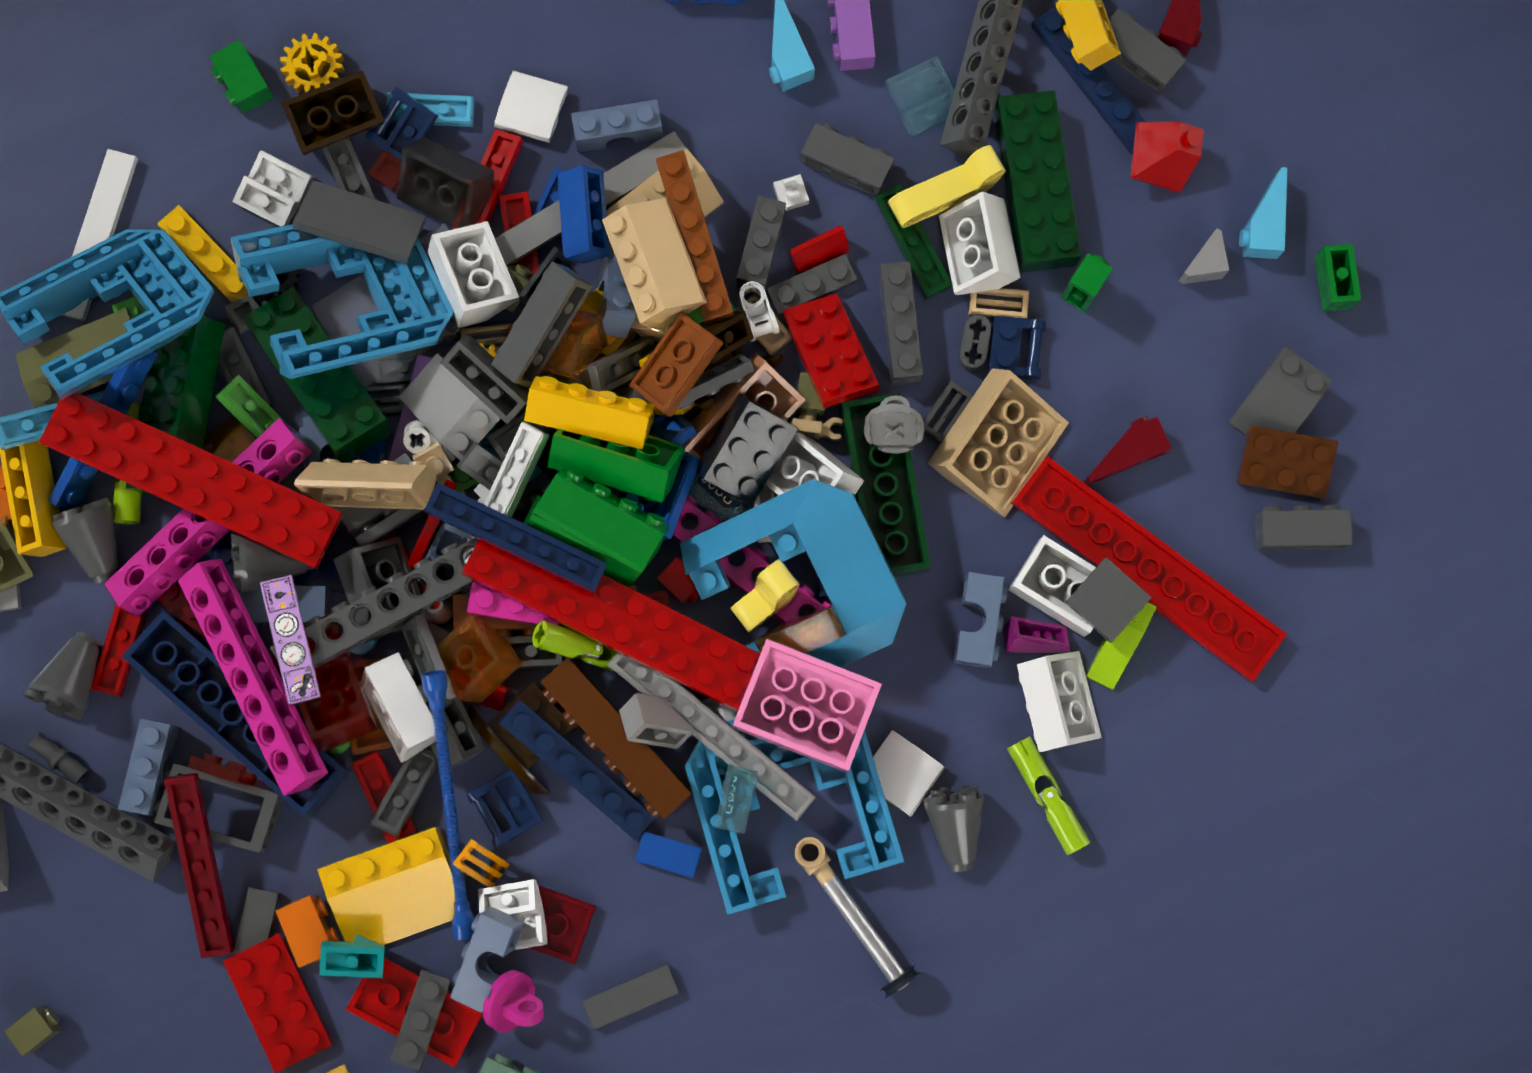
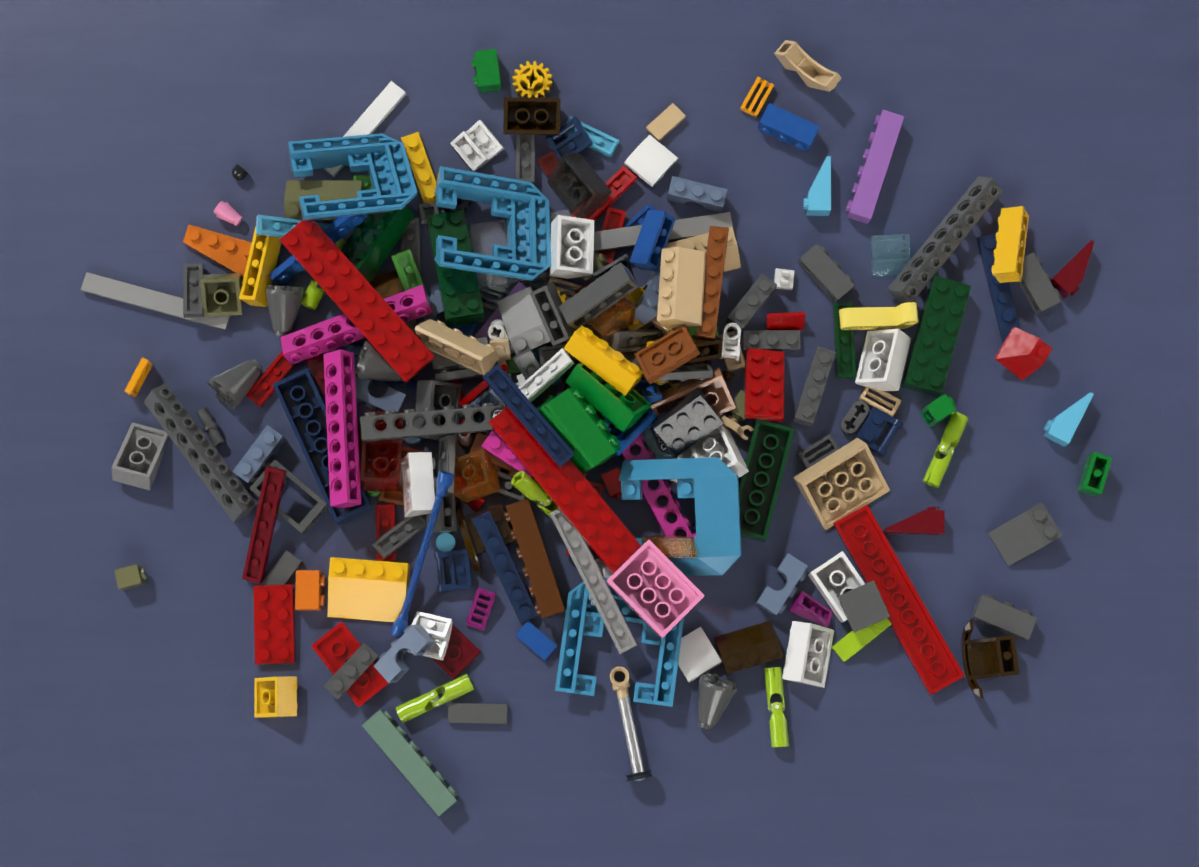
camera: 30 degrees right, 0 degrees up
(213, 765) = (307, 479): clear red plate -> none
(290, 639) = (373, 417): tile -> none
(351, 959) = (327, 618): teal slope -> none
(359, 222) = (519, 188): dark grey tile -> none
(476, 772) = (445, 542): none -> medium azure tile
(493, 871) = (430, 604): light orange tile -> none
(511, 1003) = (408, 685): dark pink tile -> none
(528, 44) = (665, 122): none -> tan tile
(556, 1007) = (431, 699): none -> lime piece
(558, 820) = (492, 596): none -> magenta slope
(654, 722) = (561, 559): light grey slope -> none
(736, 799) = (590, 625): clear light blue slope -> none
(772, 592) = (663, 514): light yellow beam -> none
(894, 426) = (781, 446): light grey tile -> none
(972, 729) = (748, 647): none -> dark brown slope
(1119, 315) = (948, 443): none -> lime piece
(1209, 263) = (1020, 430): light grey slope -> none
(1287, 461) = (1012, 572): reddish brown plate -> none
(1307, 595) = (987, 657): none -> dark brown piece

